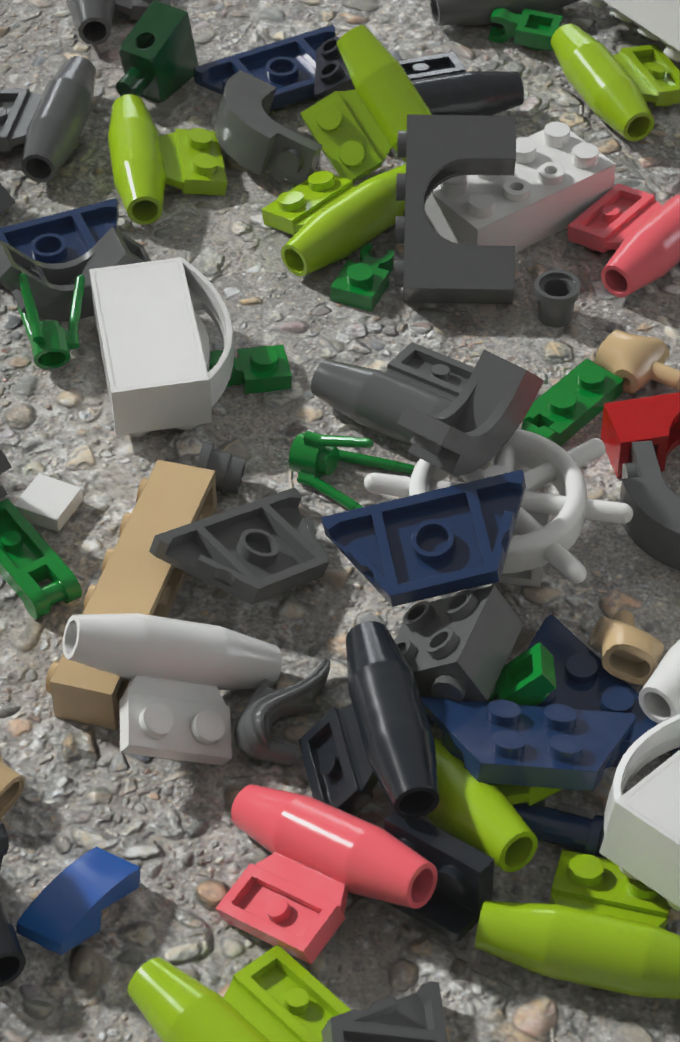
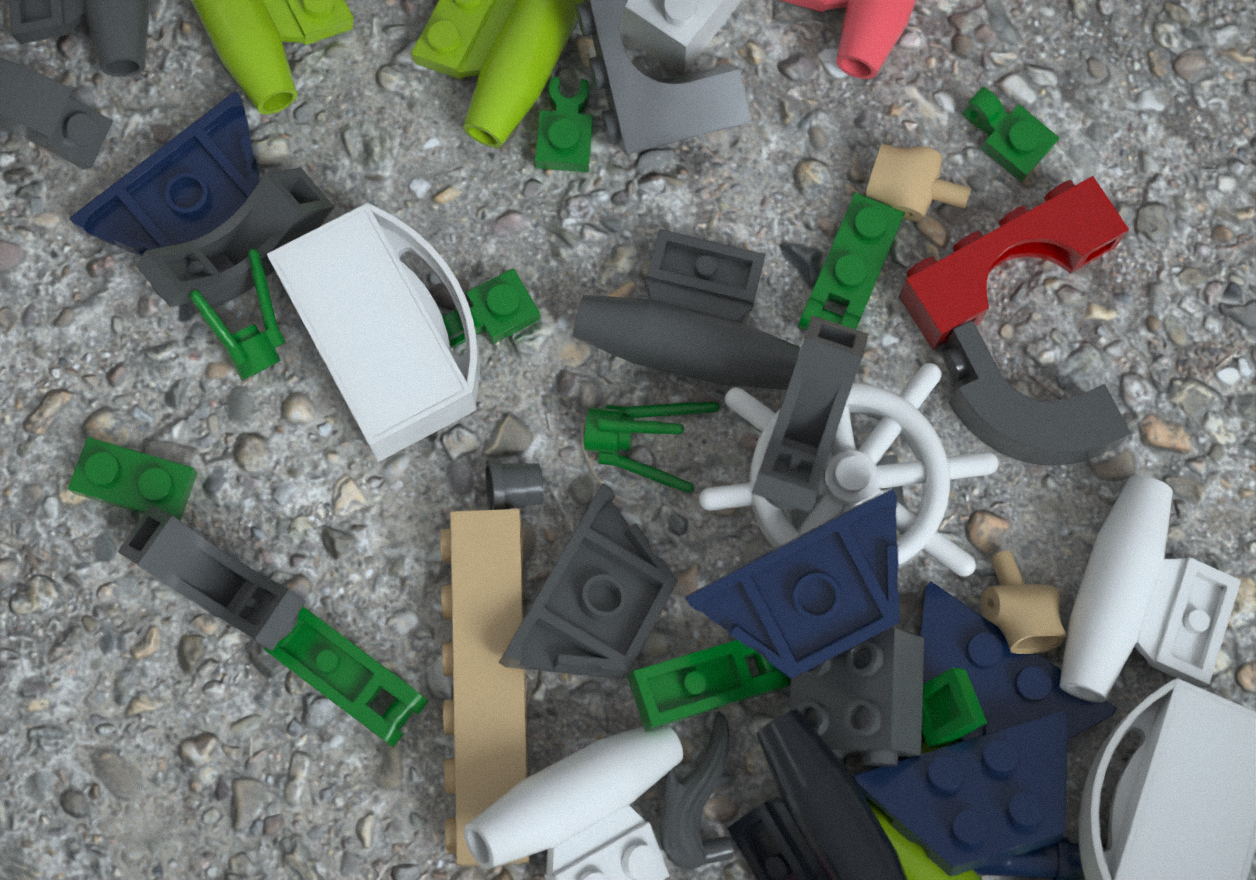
camera: 20 degrees left, 30 degrees up
(49, 502) = (340, 581): white tile -> none
(314, 618) = (701, 683): none -> green plate
(556, 297) = (797, 92): dark grey piece -> none

